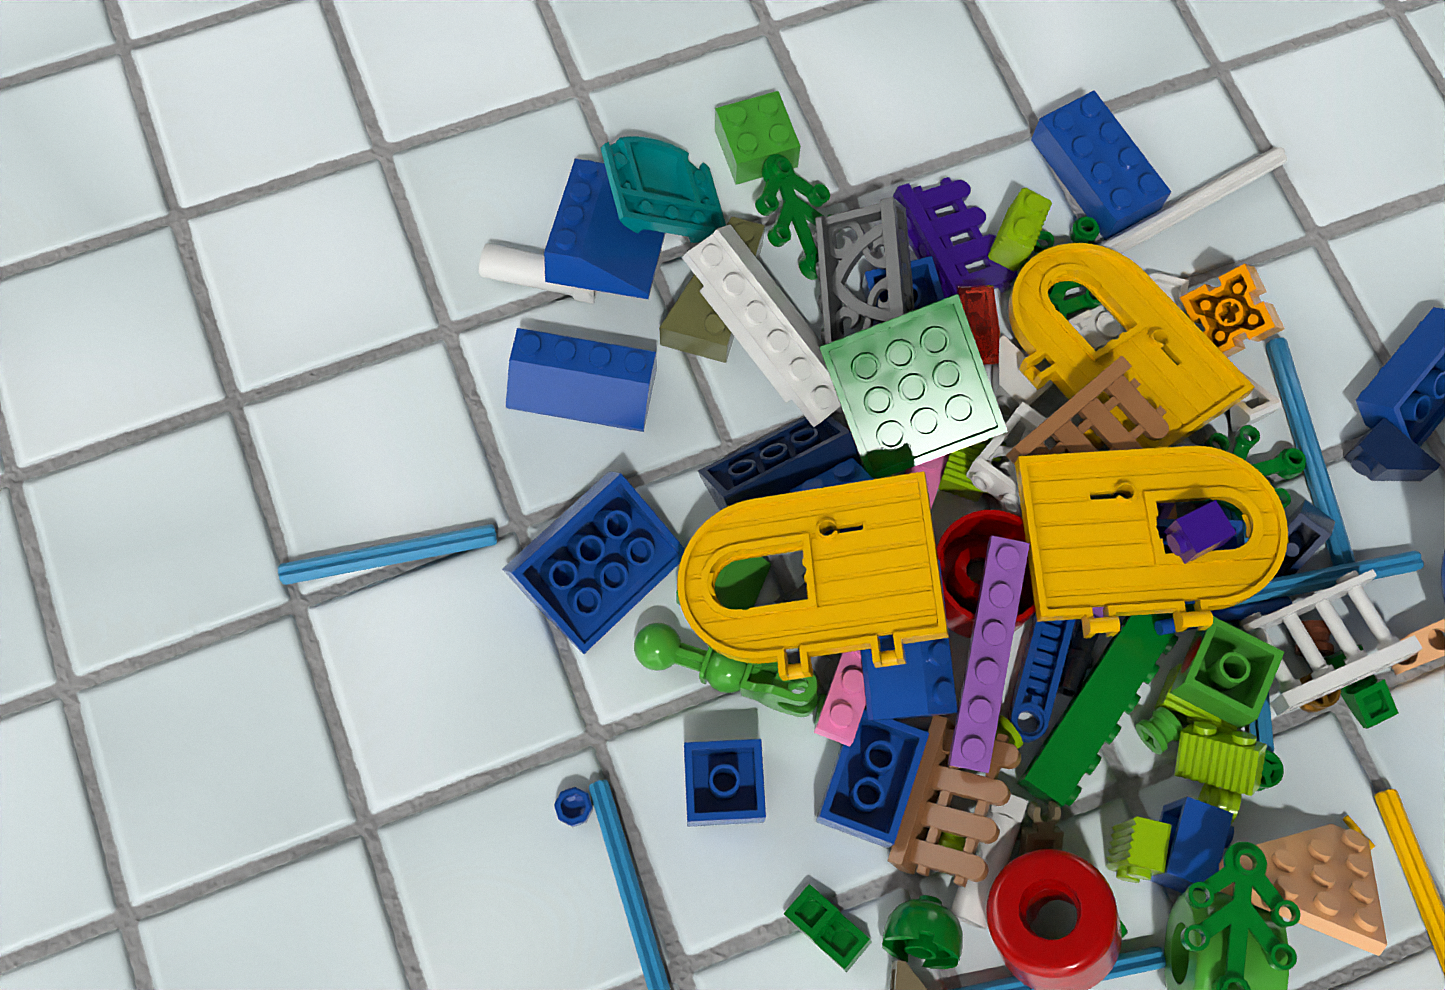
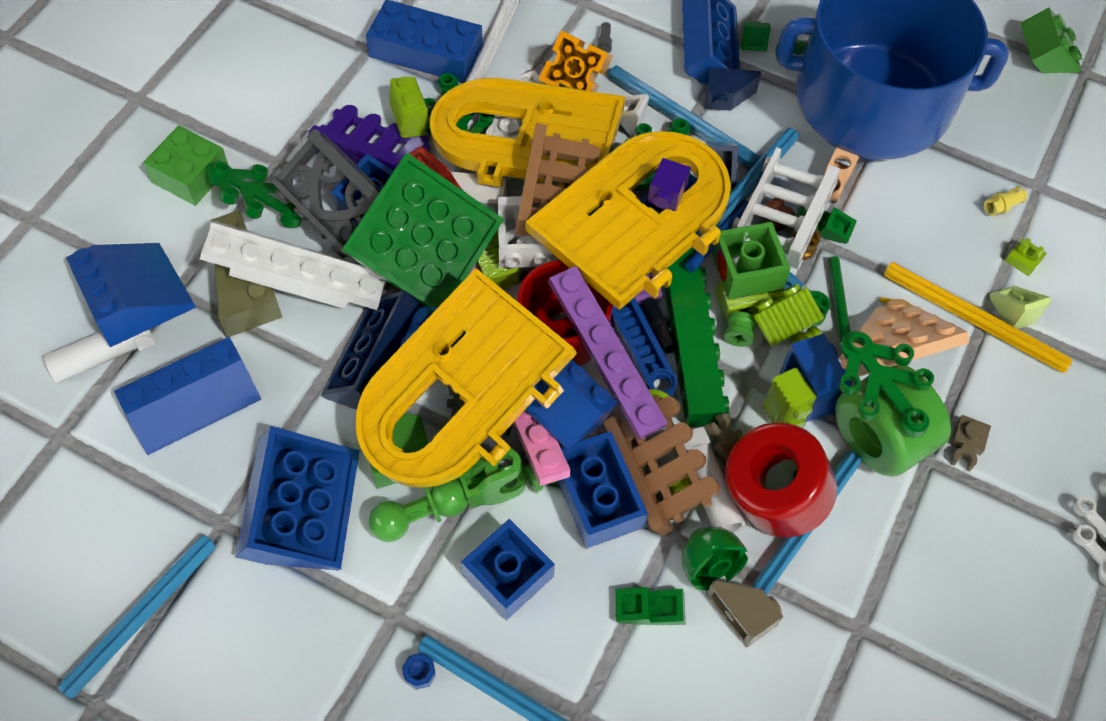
camera: 40 degrees left, 10 degrees down
(661, 188) = (146, 235): teal slope -> none
(1295, 788) = (839, 296): none -> green bar
(1296, 301) = (604, 42): none -> dark grey bar

